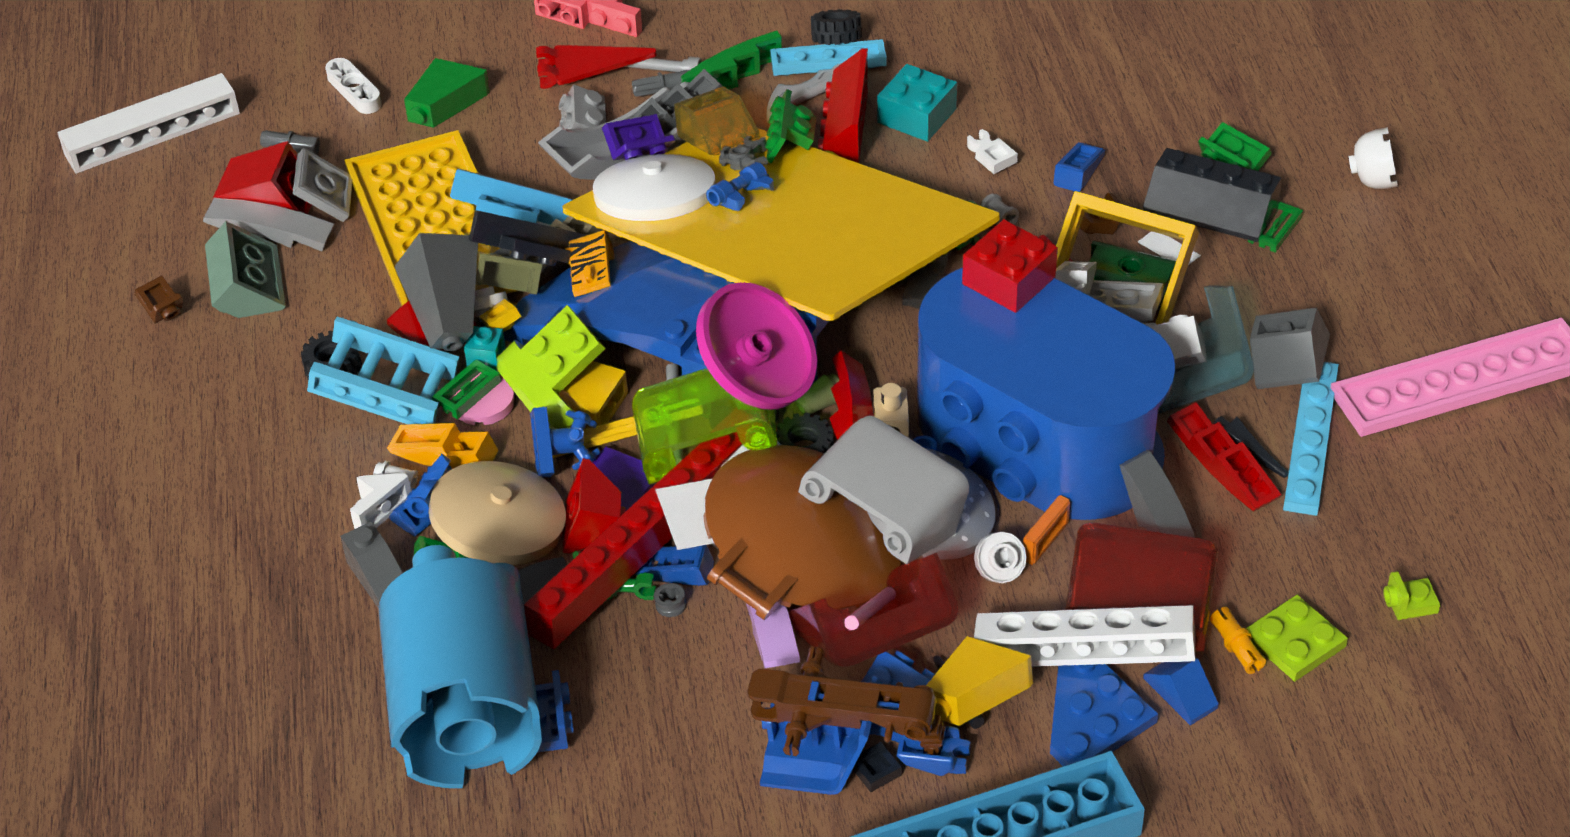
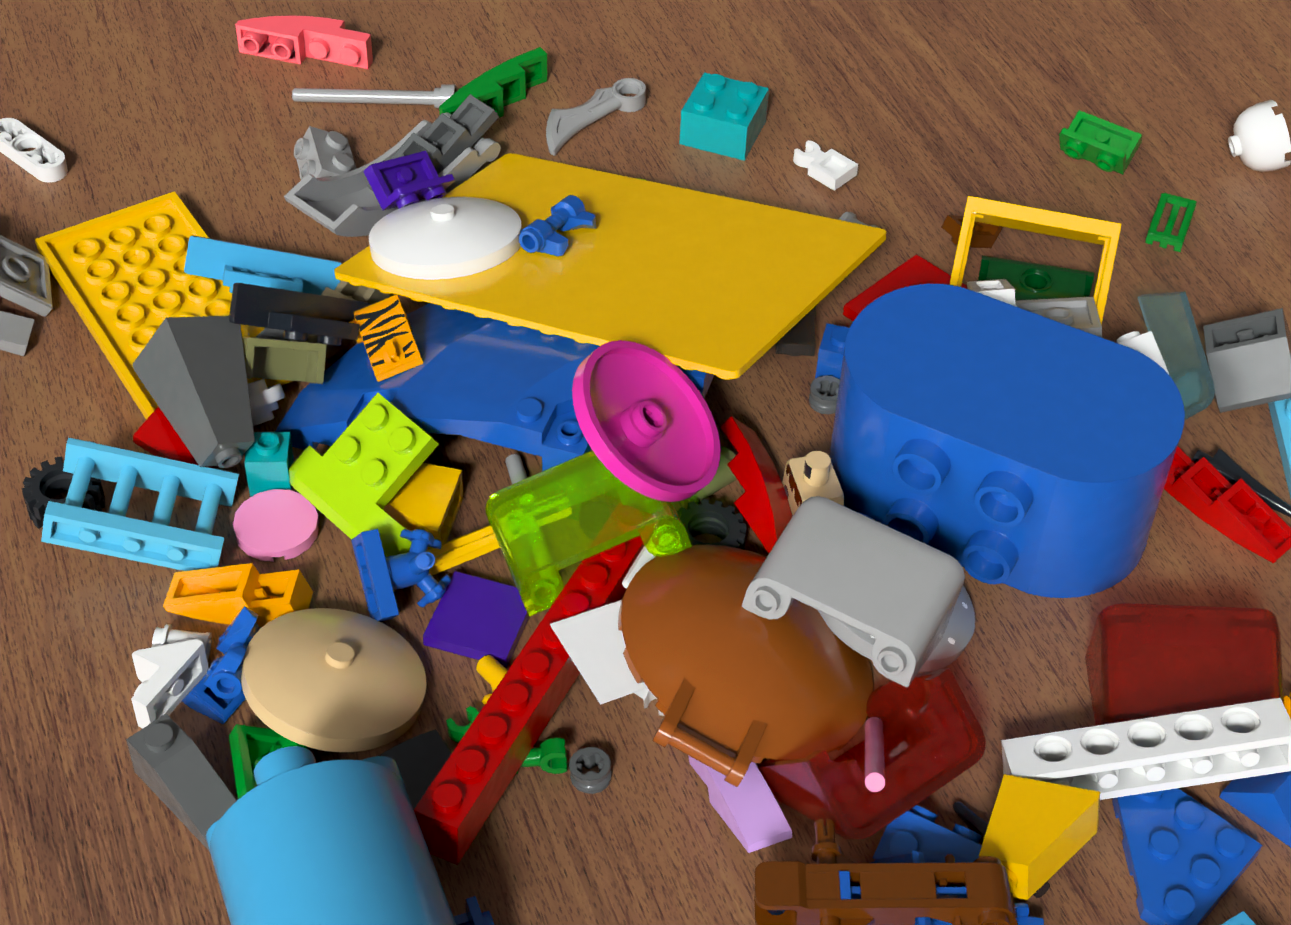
camera: 15 degrees left, 0 degrees up
(444, 92) = (148, 148): green slope -> none
(470, 391) = (261, 519): green tile -> none
(501, 316) = (282, 415): yellow plate -> none
(581, 62) = (313, 100): red flag -> none
(589, 507) = (460, 658): red slope -> none
(653, 84) = (408, 118): dark grey axle -> none
(687, 565) = (587, 732): blue slope -> none
(714, 120) = (497, 154): clear yellow slope -> none
(745, 154) = (544, 190): dark grey piece -> none
(789, 123) = (585, 152): green bracket -> none
(819, 57) = (602, 73): medium azure plate -> none
(836, 27) = (605, 39): black tyre -> none
(846, 108) = (645, 125): red slope -> none
(1000, 557) = (1000, 659): white plate -> none
(1009, 265) = (945, 288): red brick -> none
(1046, 529) = (1042, 617): orange tile -> none
(1077, 166) = (928, 174): blue slope -> none
(1154, 497) = (1174, 561): dark grey slope -> none
(1164, 246) = (1058, 256): white sticker -> none
(1213, 194) = (1099, 187): slope -> none

